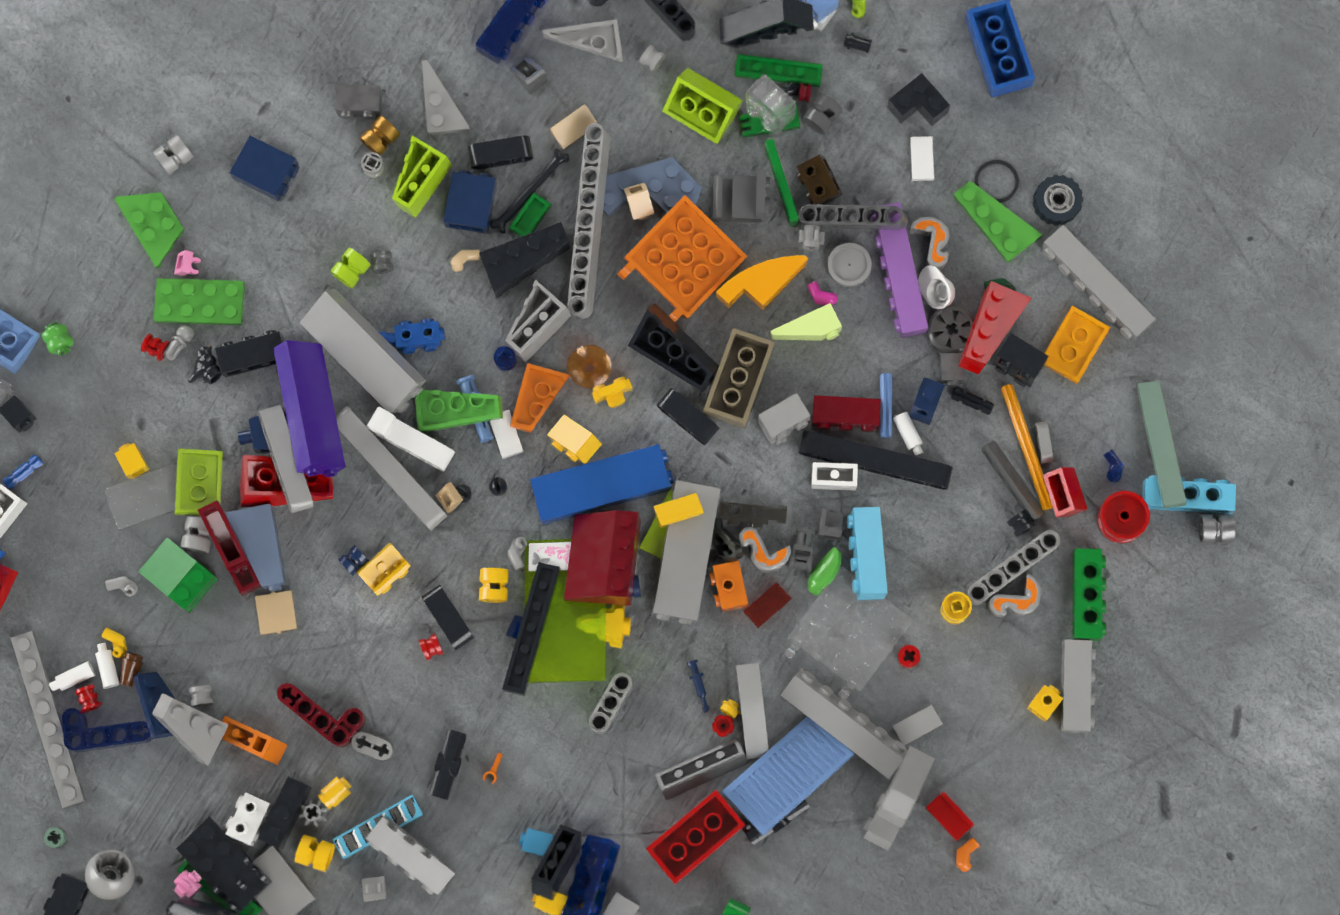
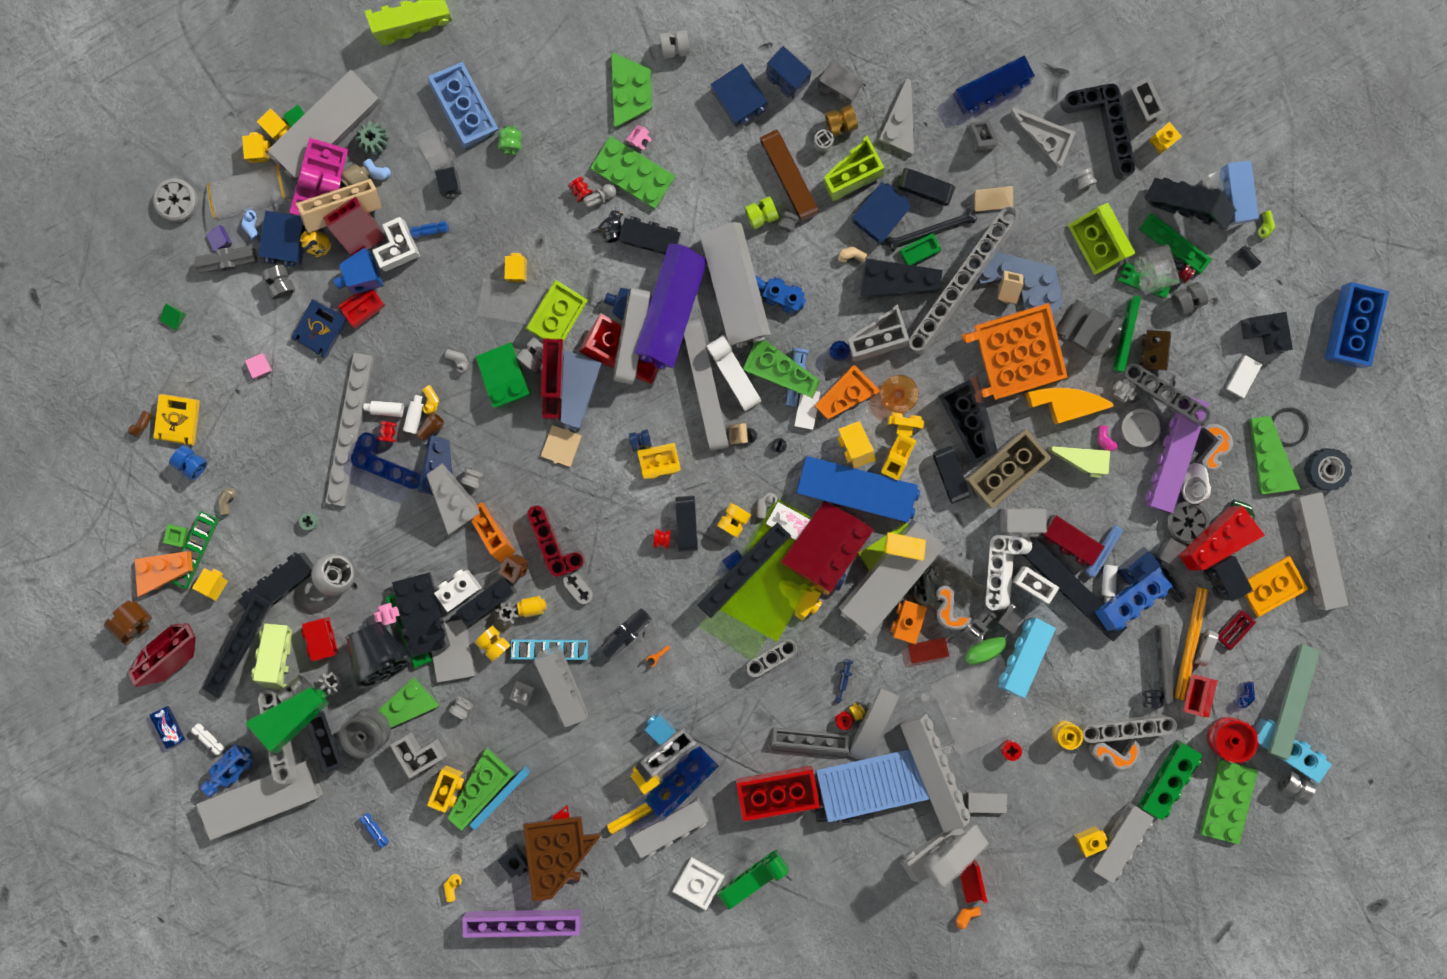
camera: 20 degrees right, 10 degrees up
(298, 759) = (517, 568): none -> reddish brown brick
(300, 119) = (788, 73): none -> dark blue brick
(357, 216) = (789, 175): none -> reddish brown beam
(623, 427) = (897, 456): none -> yellow brick
(796, 483) = (995, 572): none -> white beam
(950, 405) = (1109, 612): none -> blue brick
(1060, 426) = (1229, 625): none -> dark red tile
(1161, 583) = (1228, 801): none -> bright green piece

